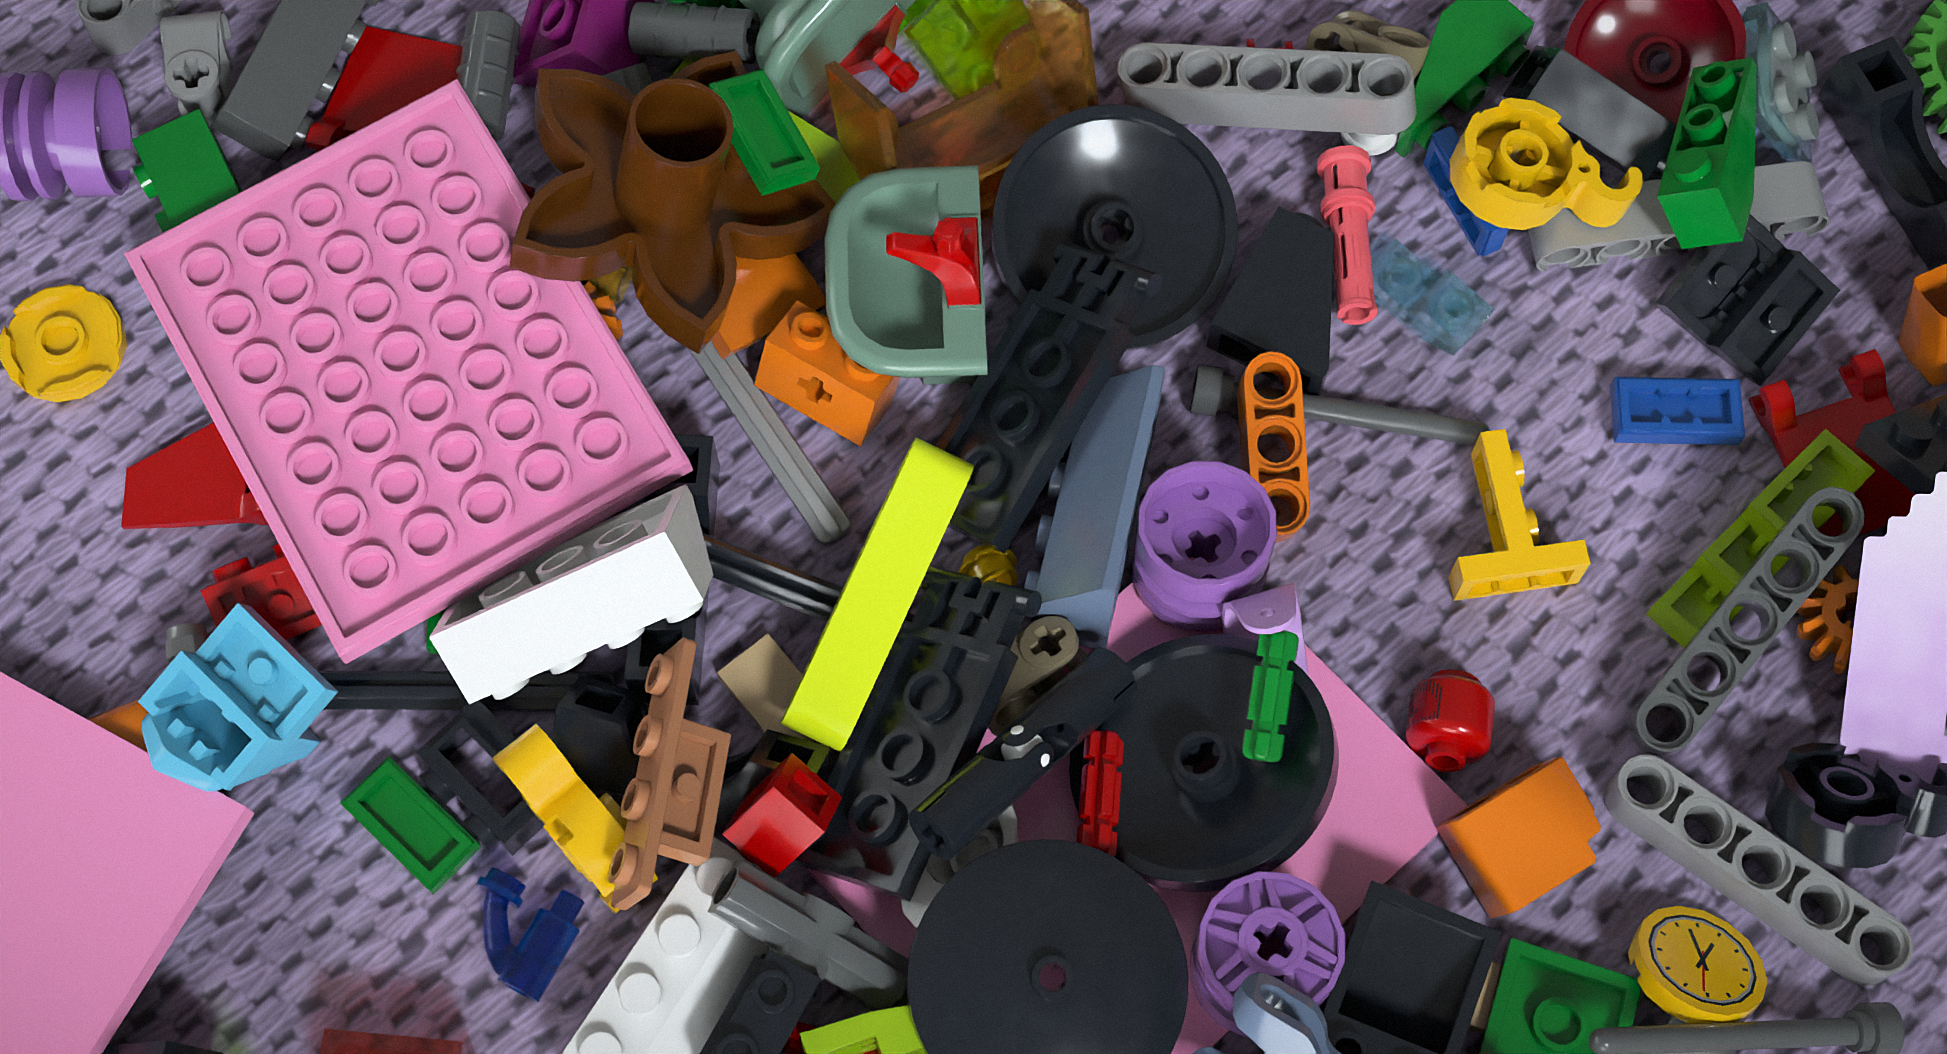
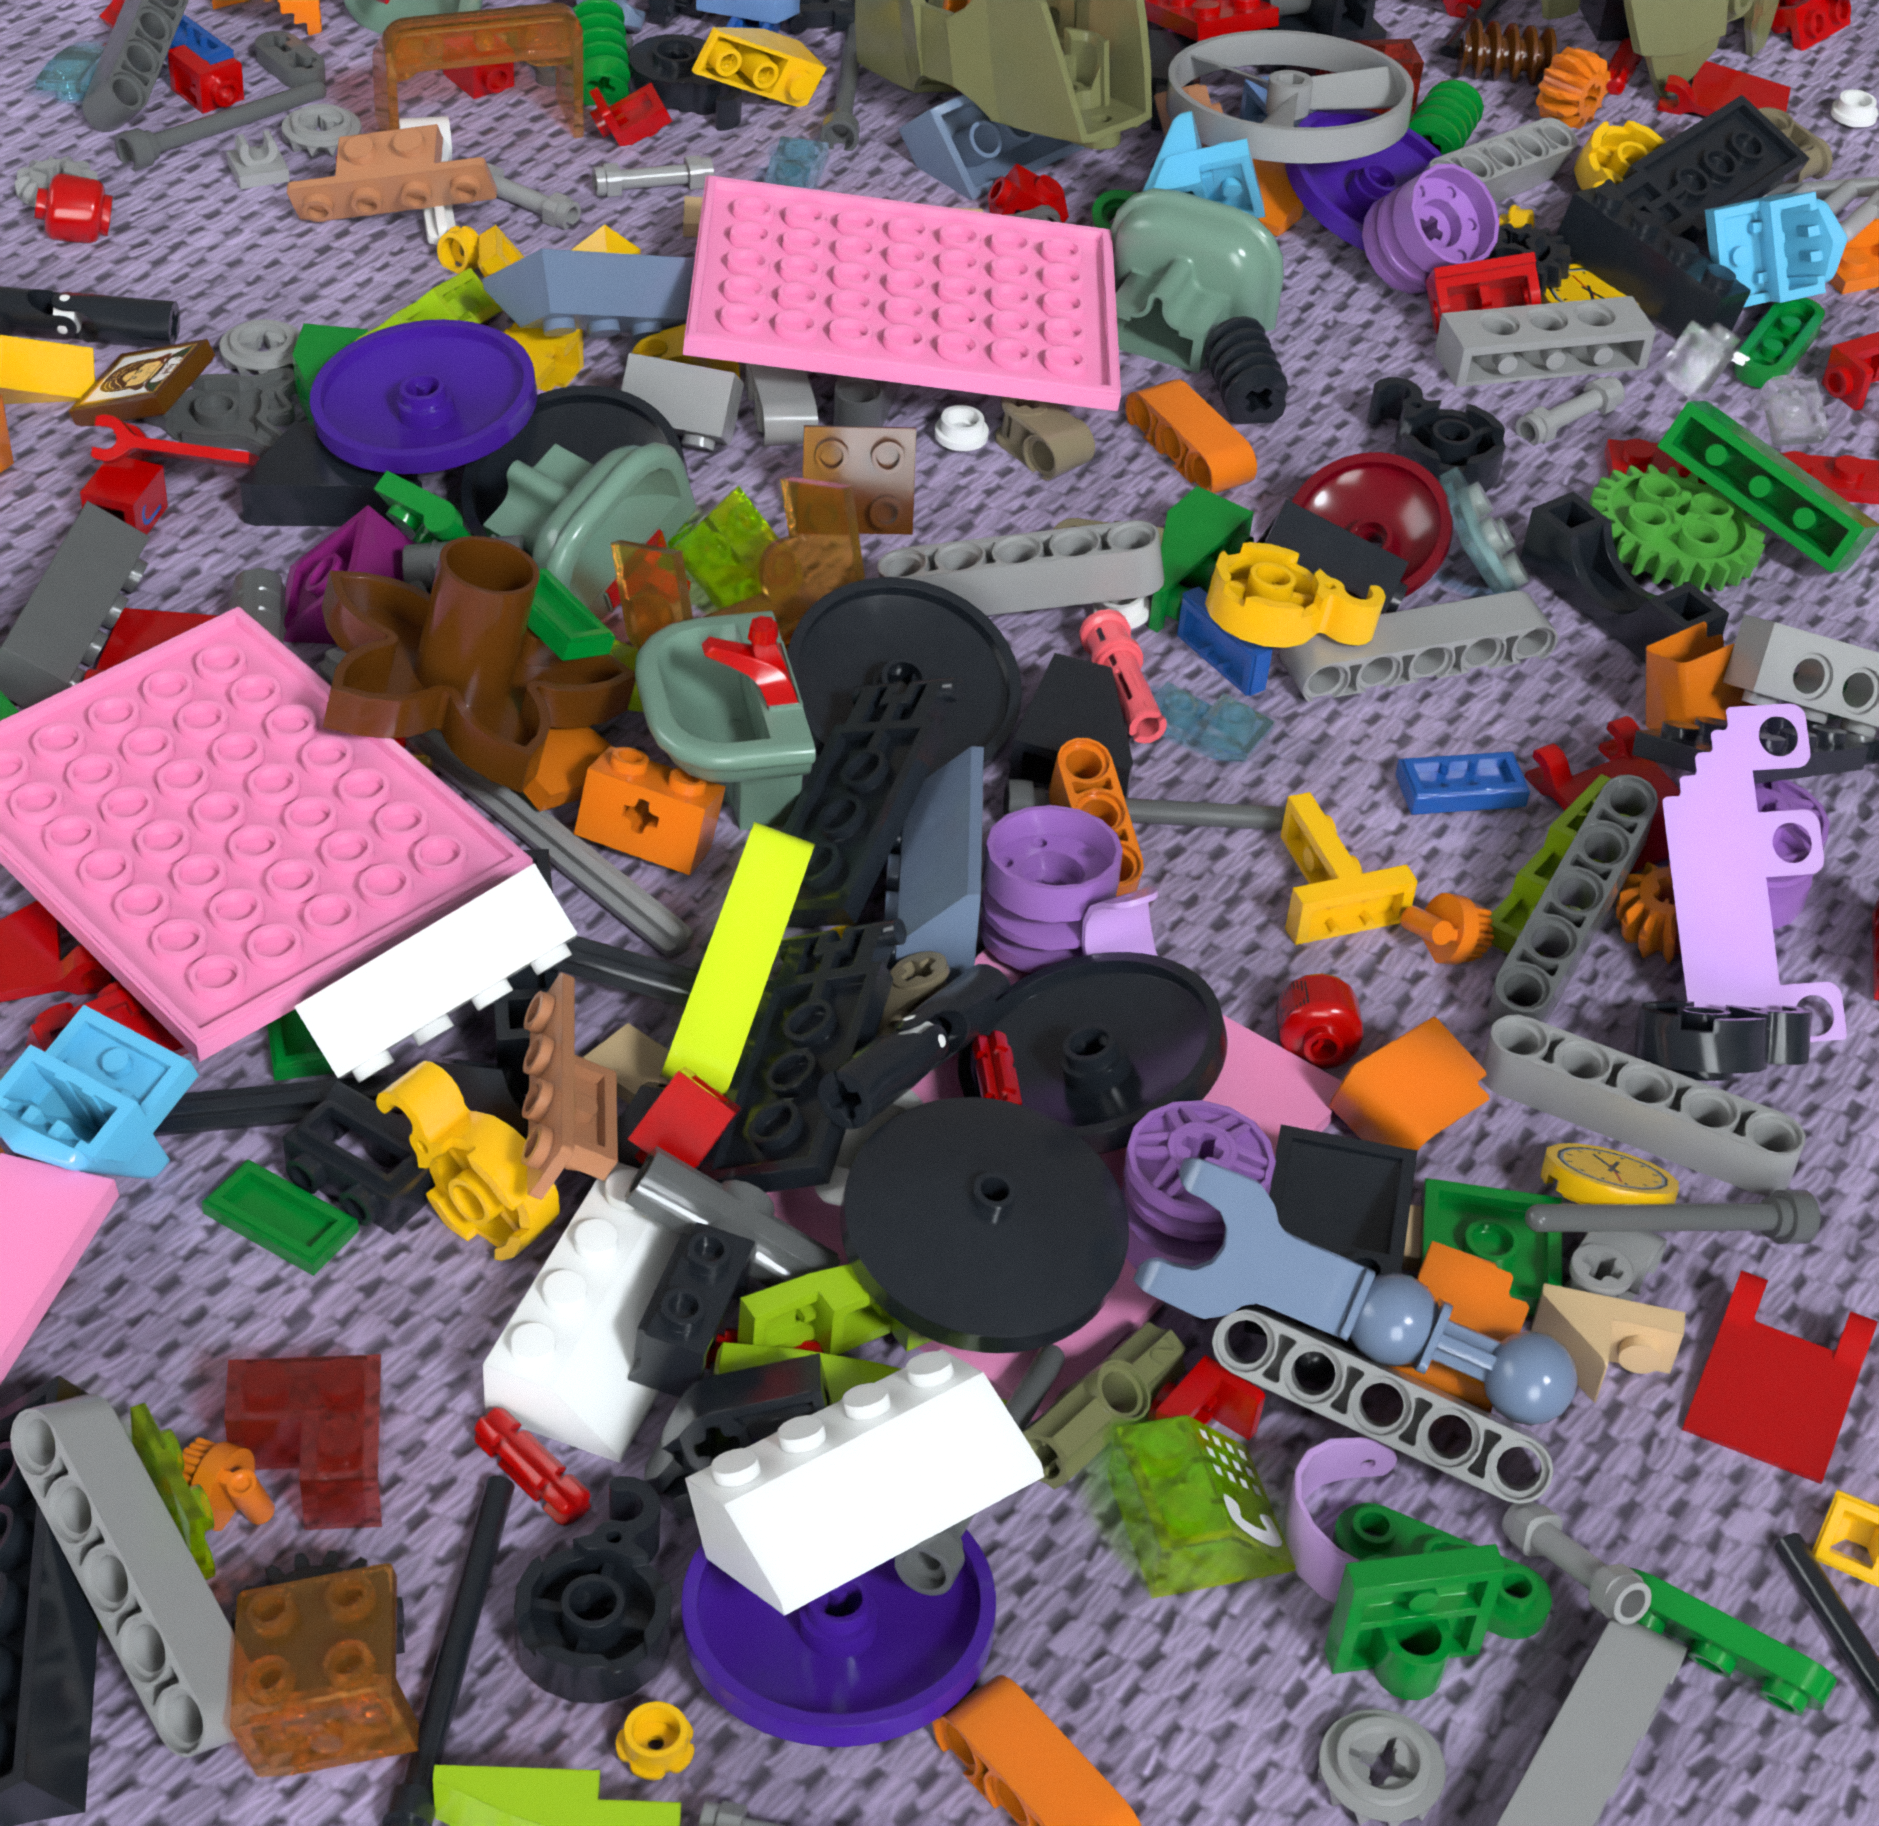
camera: 15 degrees left, 25 degrees down
(542, 947) = (443, 1298): clear blue plant -> none
(1270, 696) = (1146, 980): green axle -> none
(1616, 610) = (1451, 928): none -> orange piece
(1712, 156) = (1442, 575): green slope -> none
(1748, 300) = (1501, 691): black slope -> none

